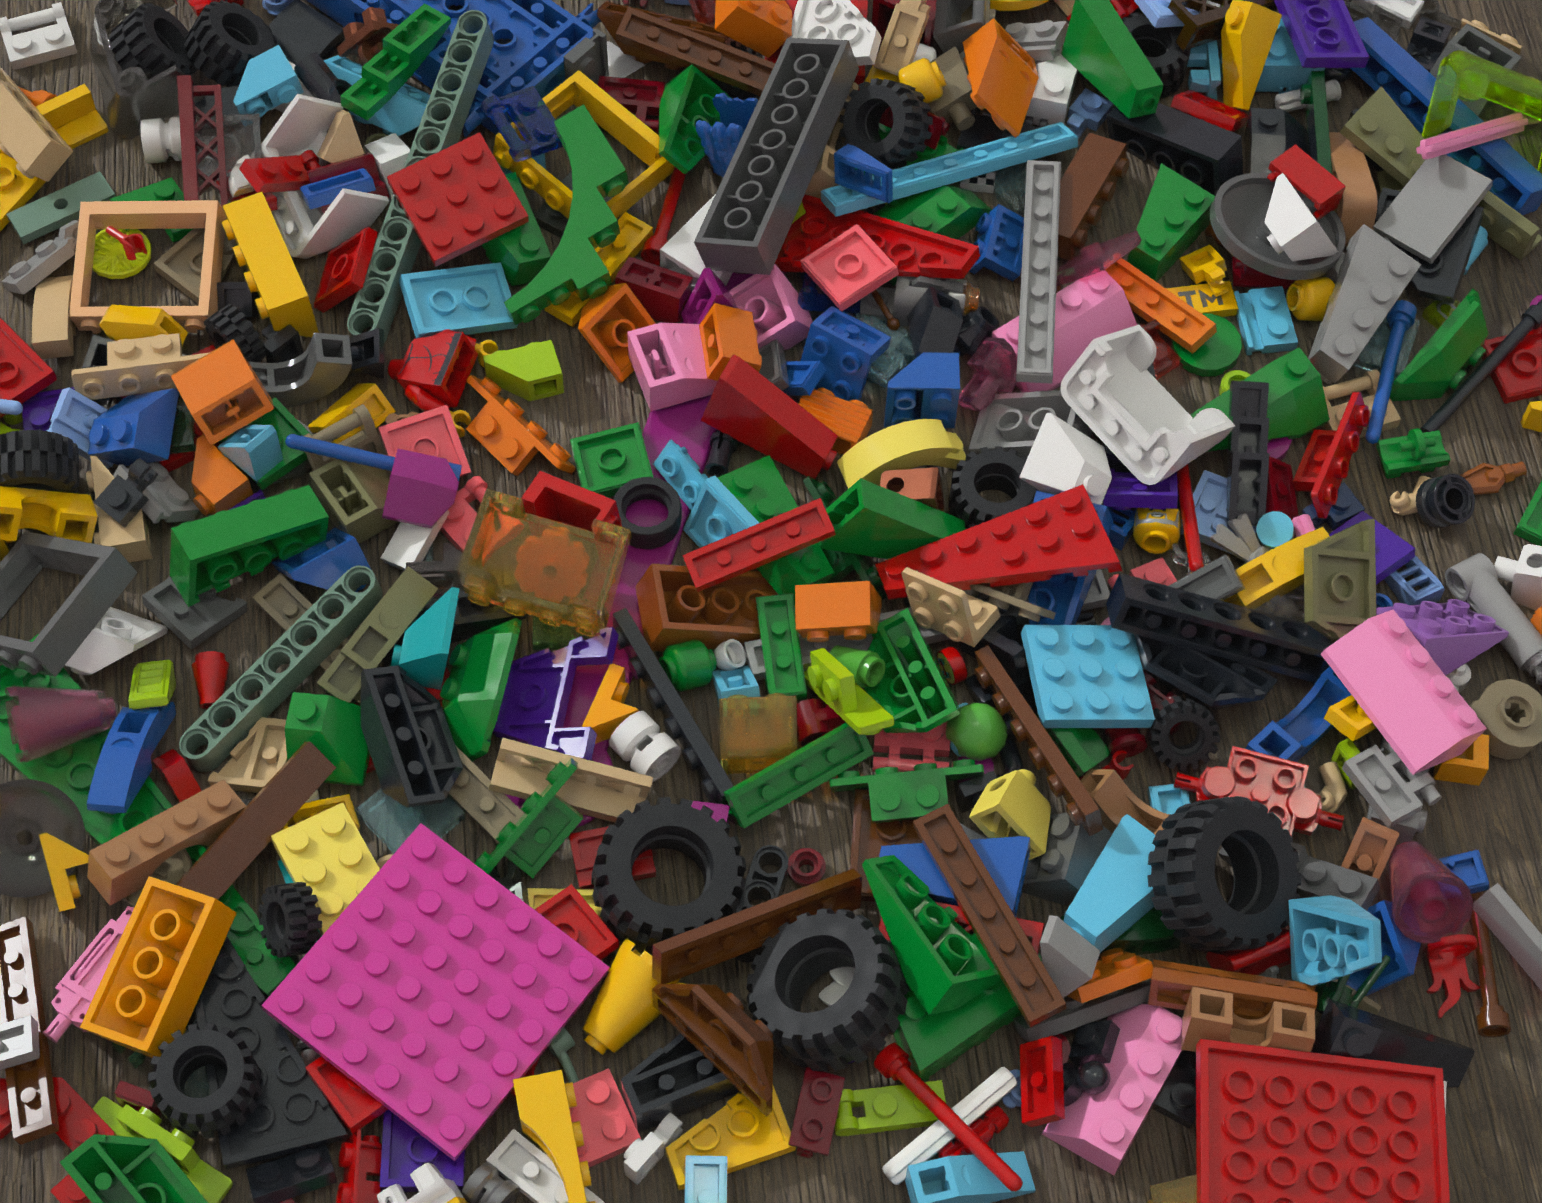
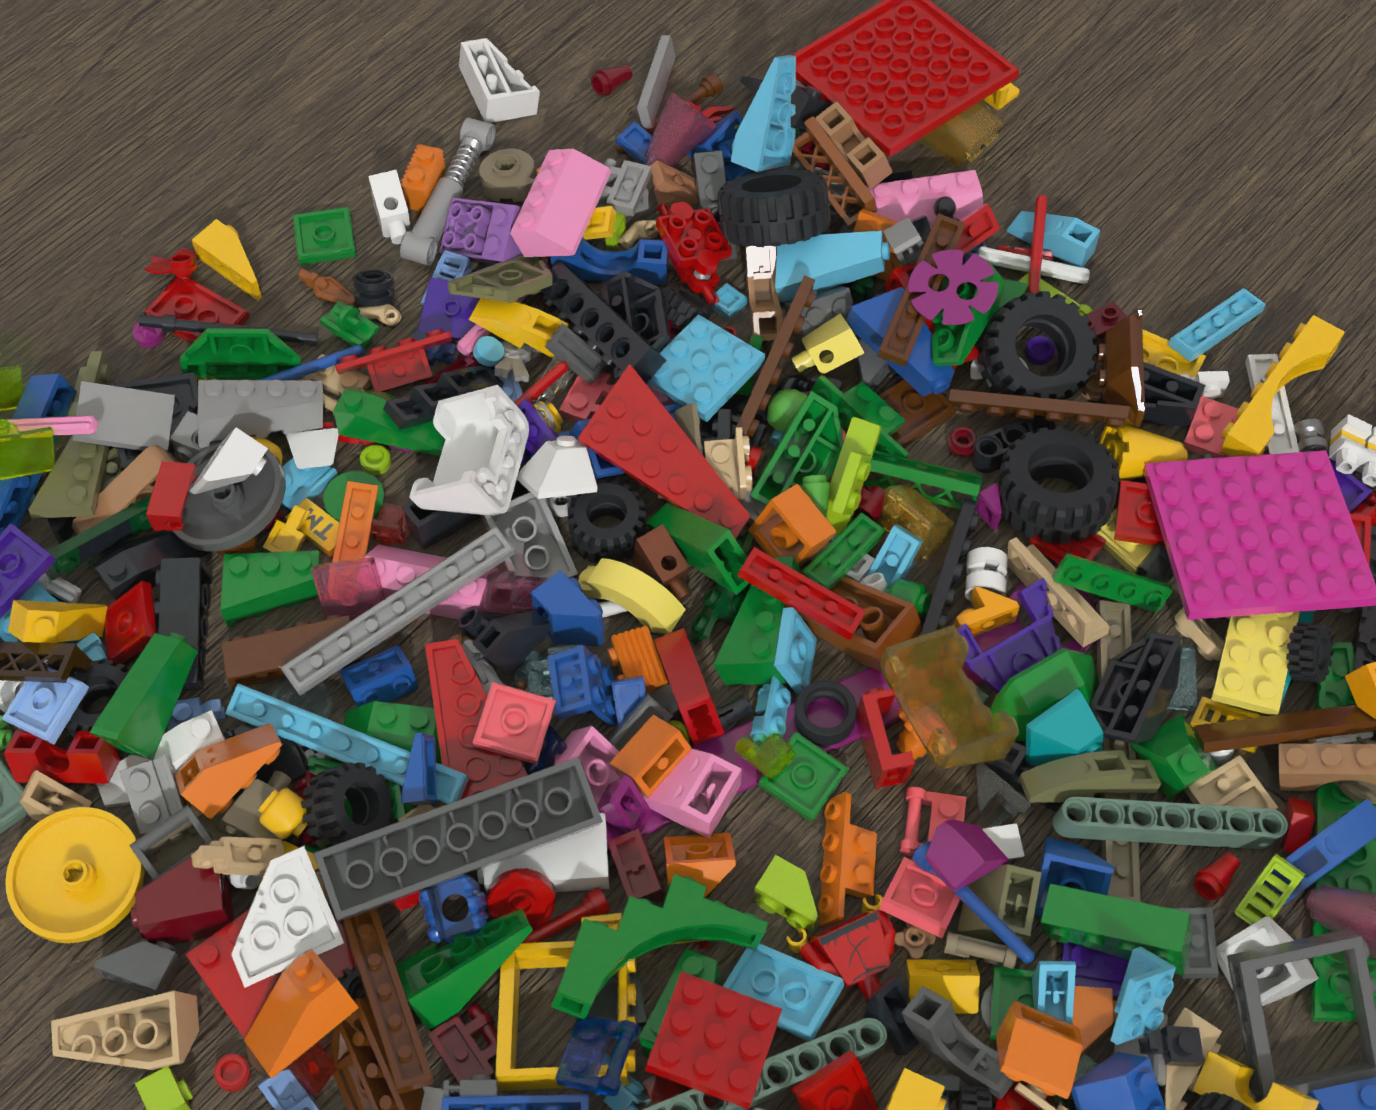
camera: 130 degrees left, 0 degrees up
(164, 483) = (1142, 995): none -> medium azure bracket
(650, 436) = (769, 757): none -> clear neon green piece
(700, 194) = (522, 890): none -> red tile
(955, 957) = (955, 309): none -> magenta piece
(1284, 335) = (313, 447): none -> white sticker

